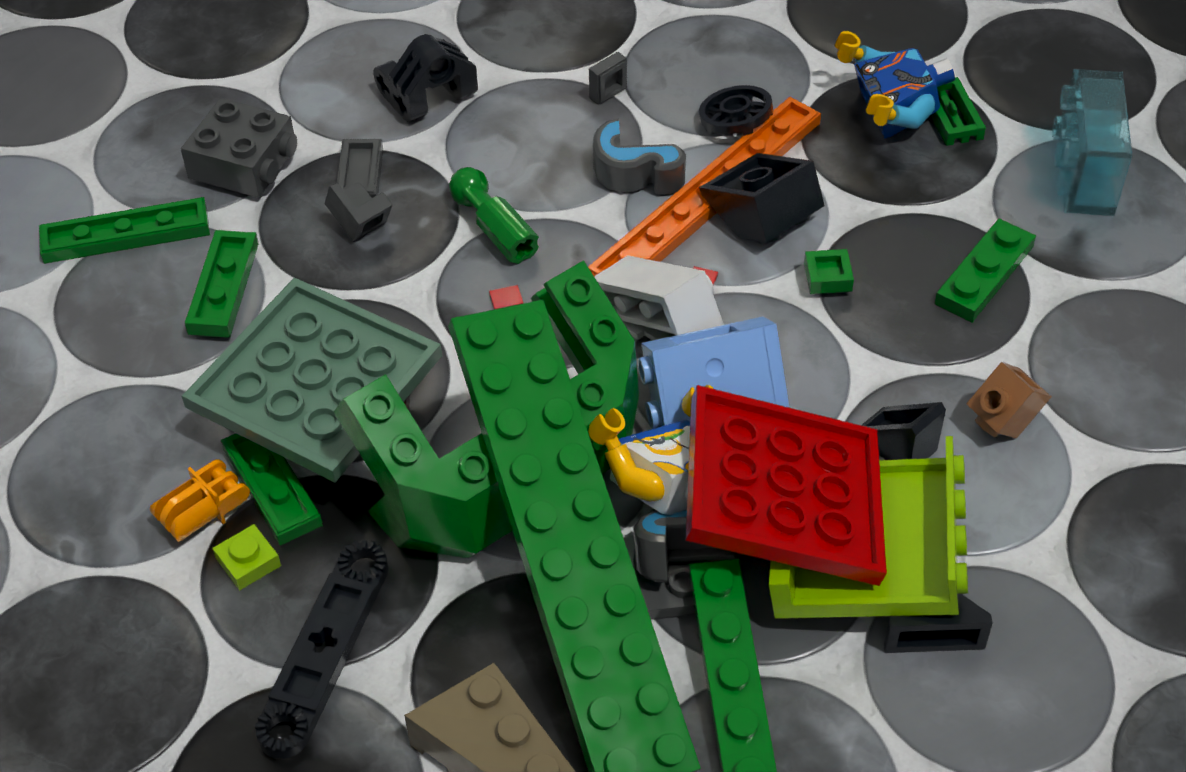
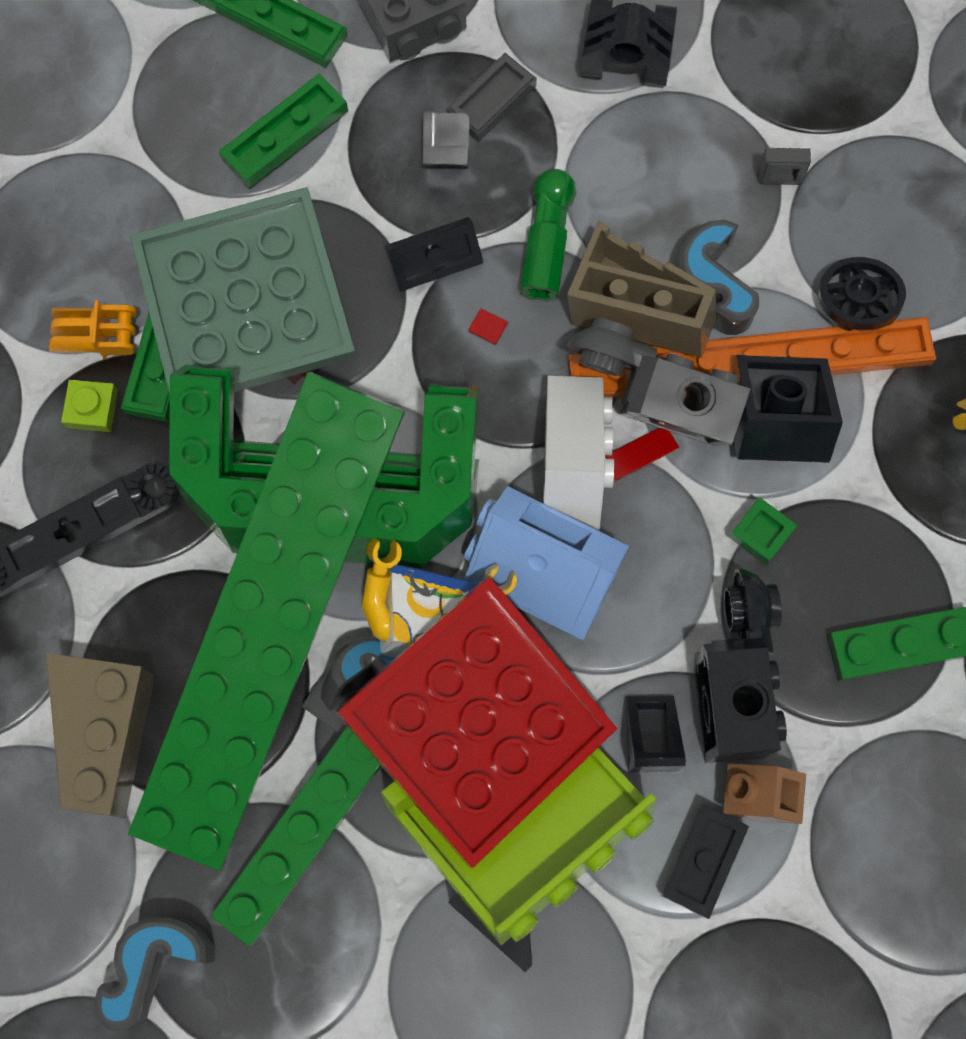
camera: 45 degrees right, 25 degrees up
(422, 276) = (434, 254): none -> black plate
(603, 195) = (636, 290): none -> dark tan wedge
(684, 223) = (658, 383): none -> dark grey brick
(918, 346) = (744, 672): none -> black brick
(1019, 476) = (705, 861): none -> black plate

